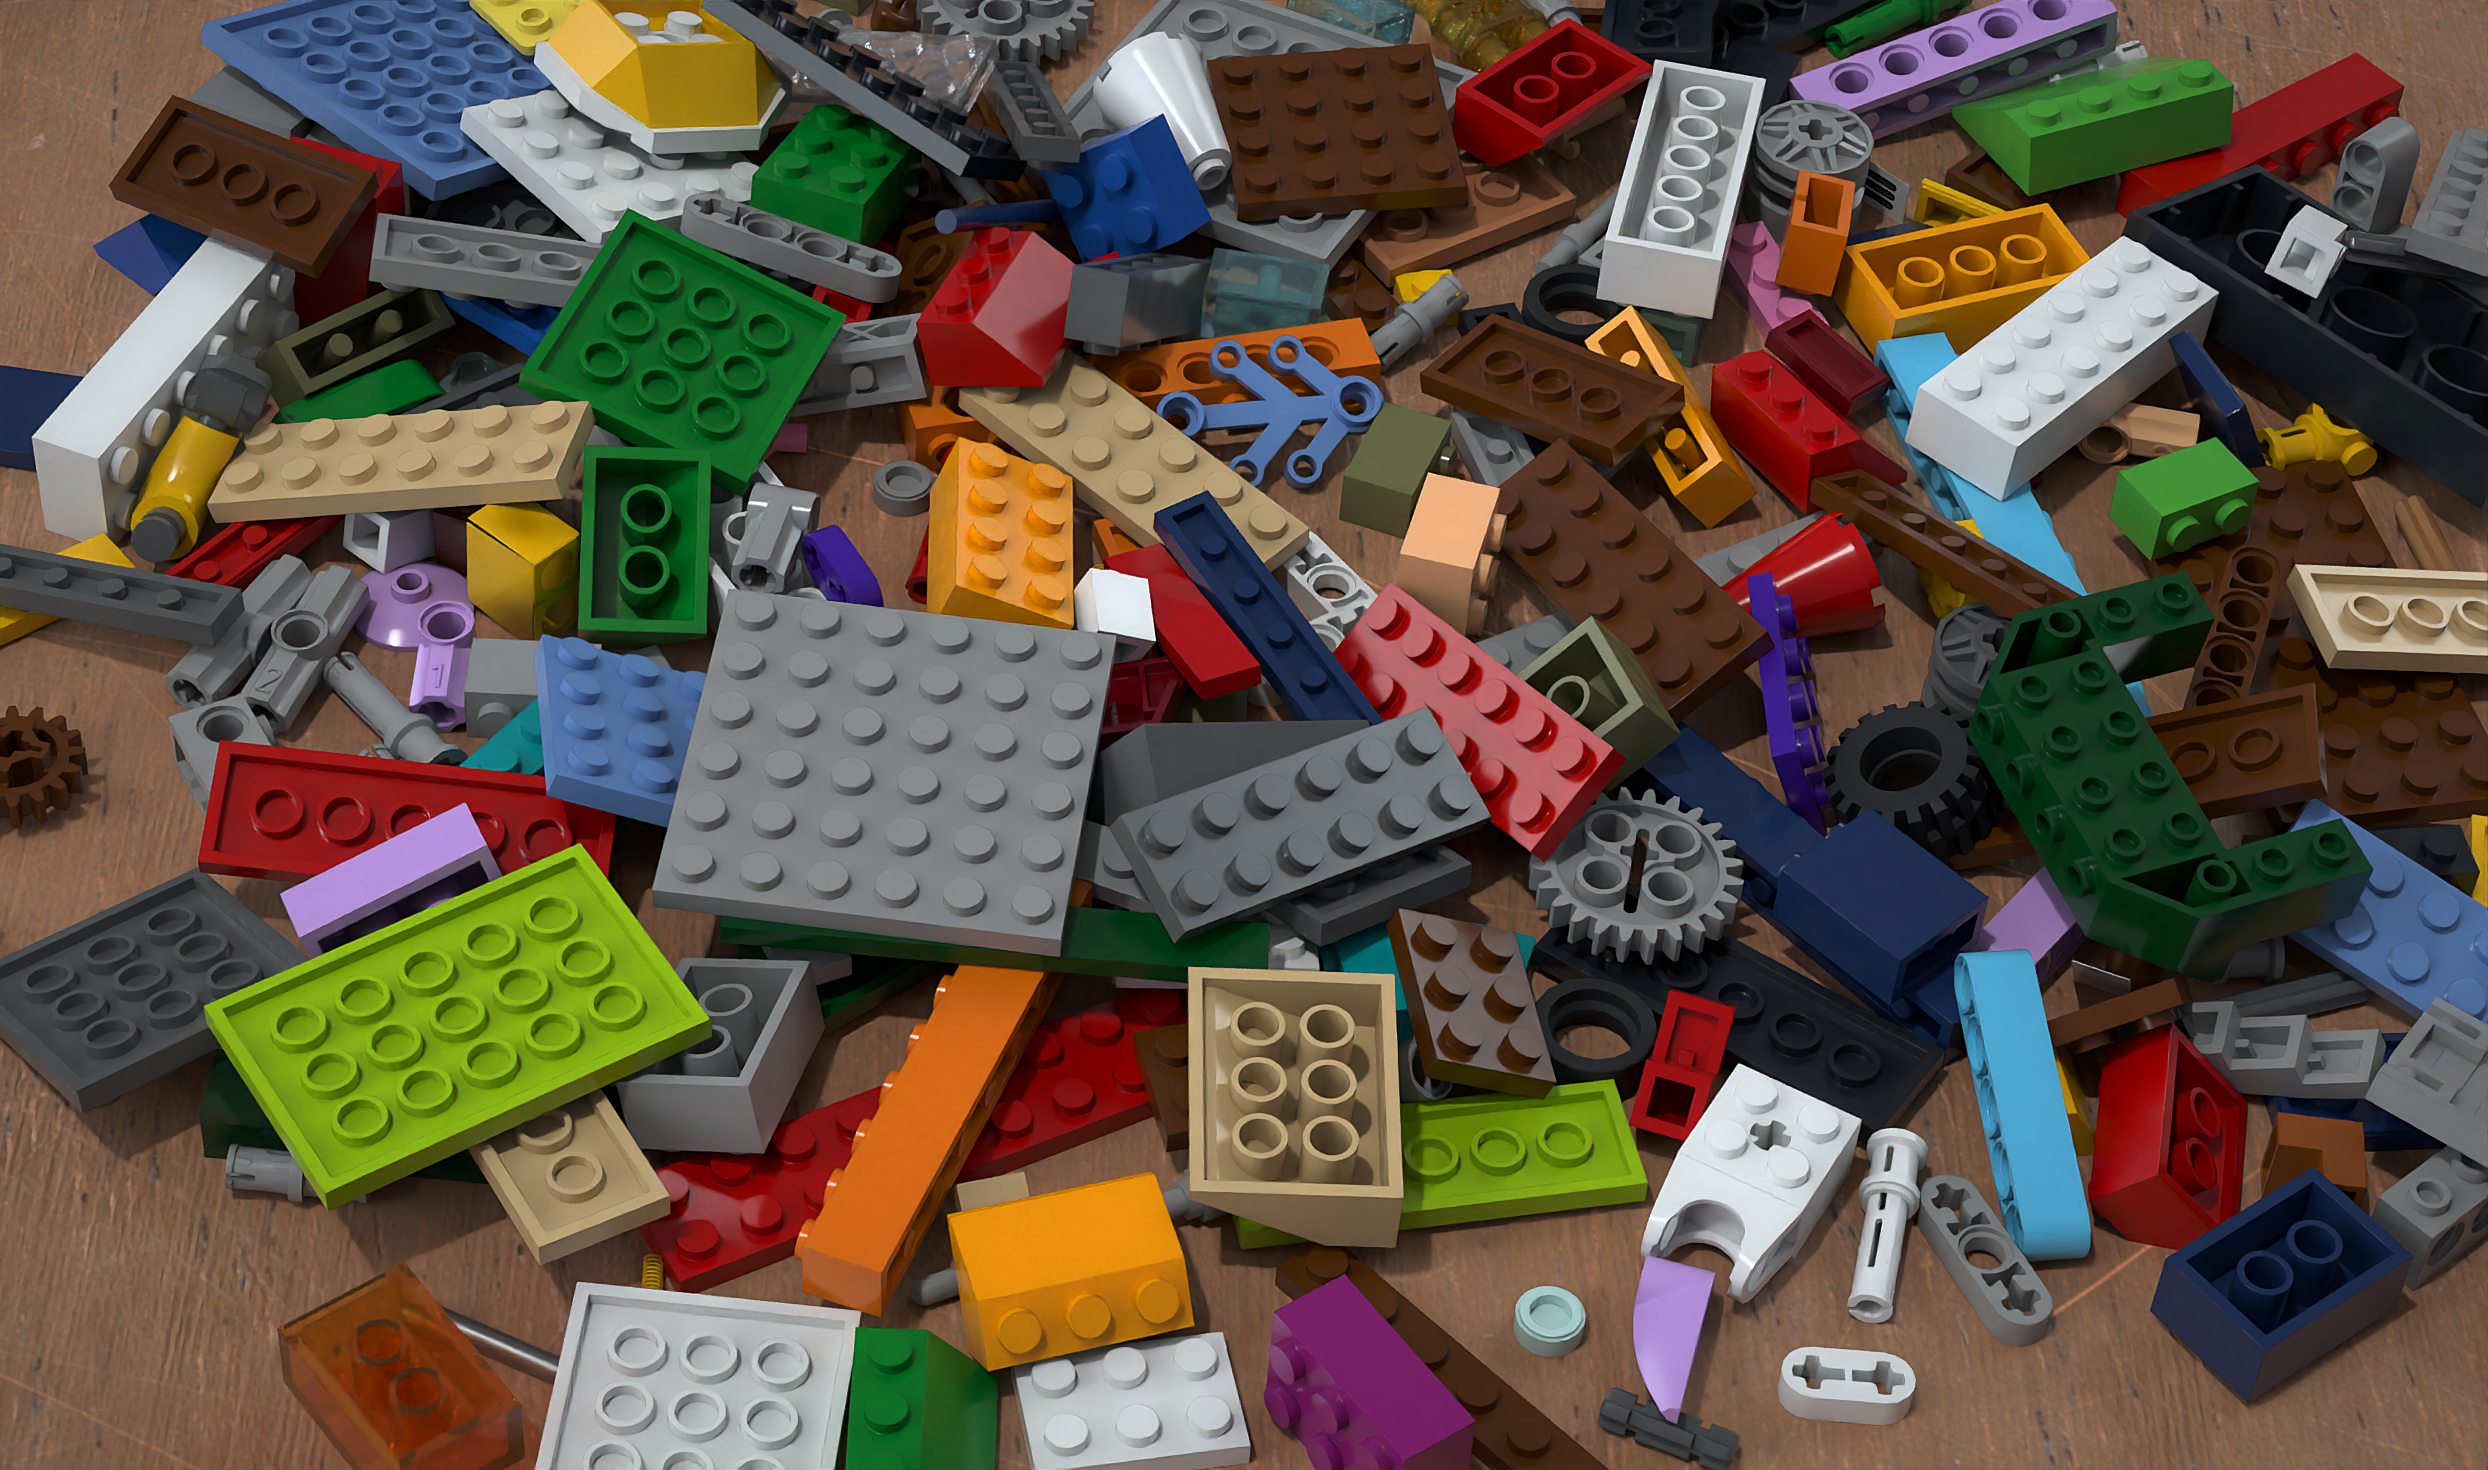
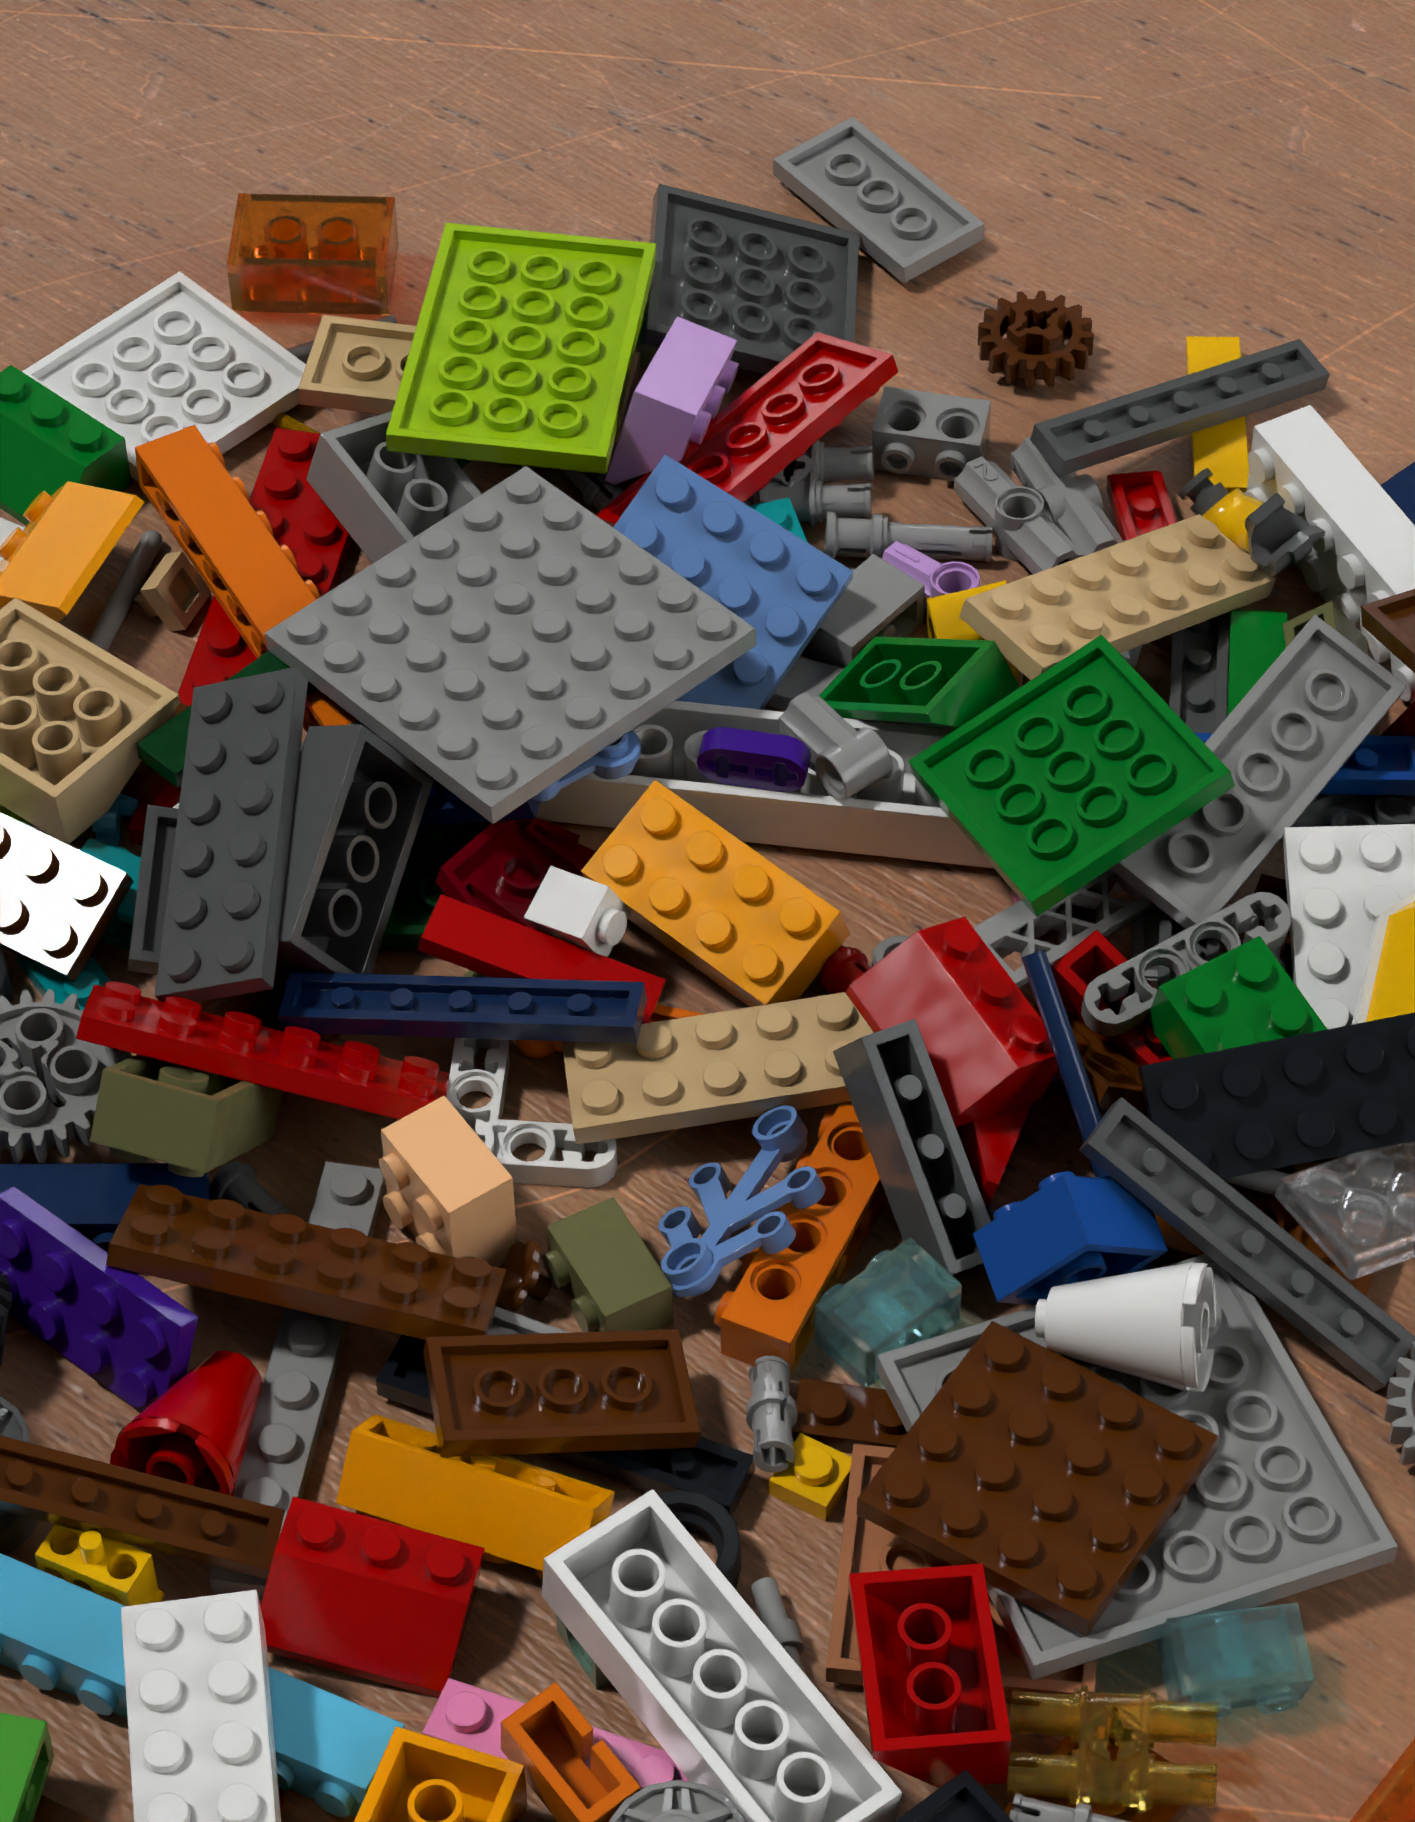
camera: 135 degrees right, 5 degrees up
(1827, 362) = (429, 1680): dark red tile -> none

